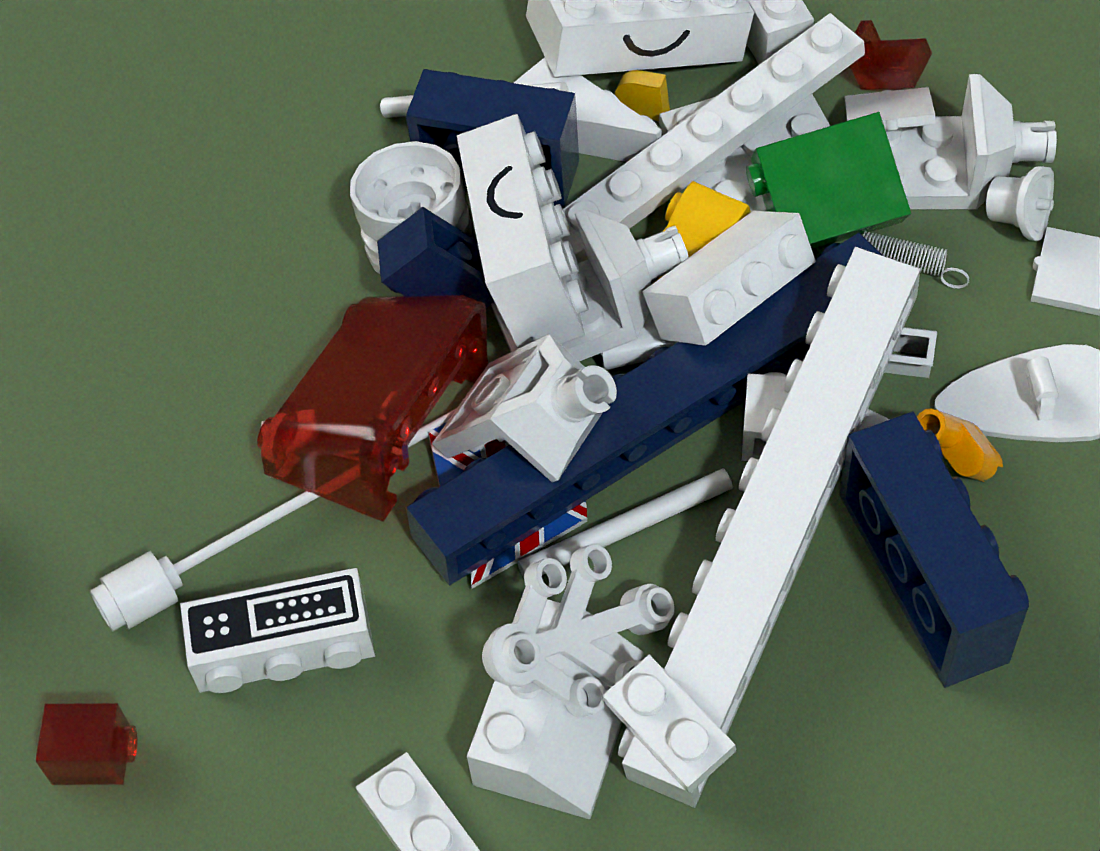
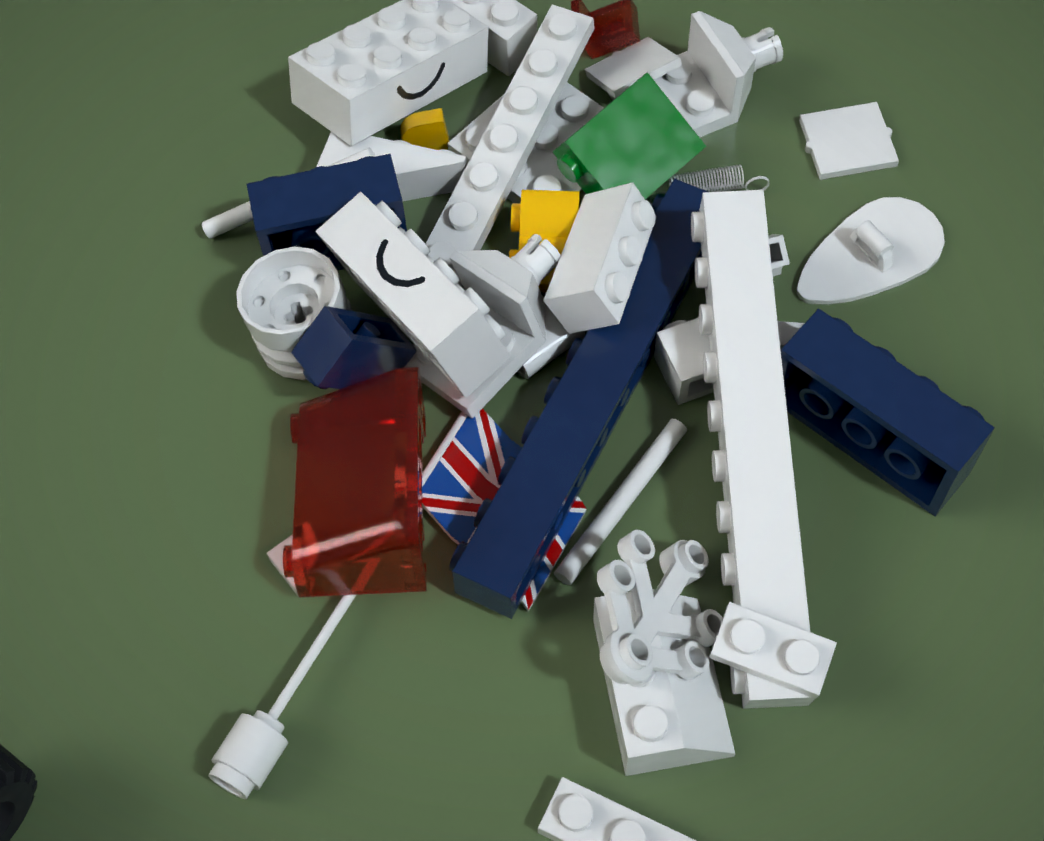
camera: 30 degrees left, 5 degrees up
(277, 631) = (394, 728): white brick -> none
(534, 401) = (503, 432): white plate -> none
(962, 444) = (860, 319): light orange piece -> none
(1023, 201) = (775, 102): white piece -> none

